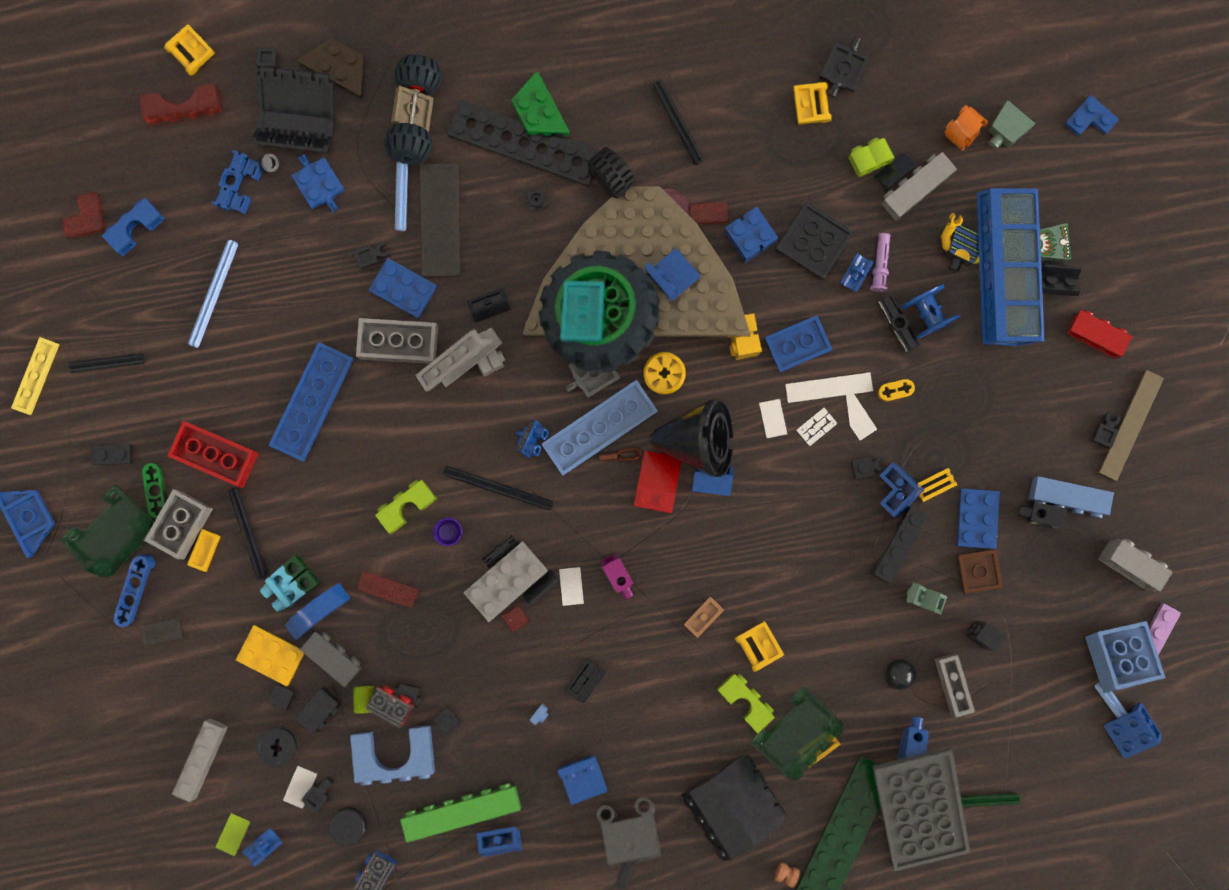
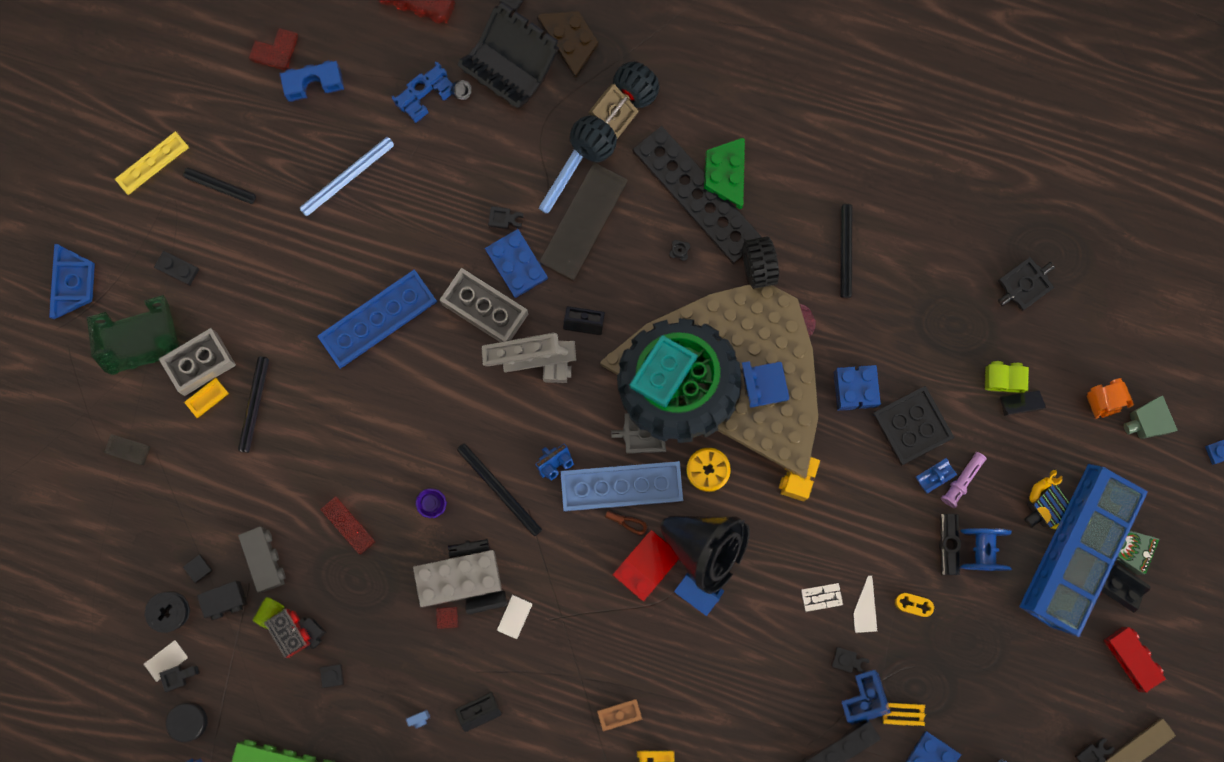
camera: 30 degrees right, 5 degrees down
(135, 592) = (125, 401): blue beam -> none
(162, 495) = (191, 312): green beam -> none
(200, 760) = (91, 584): light grey brick -> none
(213, 454) = (264, 317): red brick -> none
(232, 834) = (81, 669): lime sticker -> none
(262, 847) = (100, 696): blue hips -> none
(270, 655) = (209, 525): yellow plate -> none
(285, 588) = (258, 473): hips -> none
(316, 611) = (273, 508): blue arch -> none
(318, 183) = (494, 130): blue plate -> none
(369, 769) = (236, 680): medium blue arch -> none
(391, 514) = (389, 459): lime arch -> none
(614, 569) = (562, 623): magenta torso -> none
(709, 212) = (830, 347): clear red tile -> none
(773, 418) = (785, 567): white sticker -> none
(798, 344) = (846, 511): blue plate -> none
(806, 104) = (972, 298): yellow plate -> none
(829, 387) = (853, 567): white sticker -> none
(918, 186) = (1038, 428): light grey brick -> none

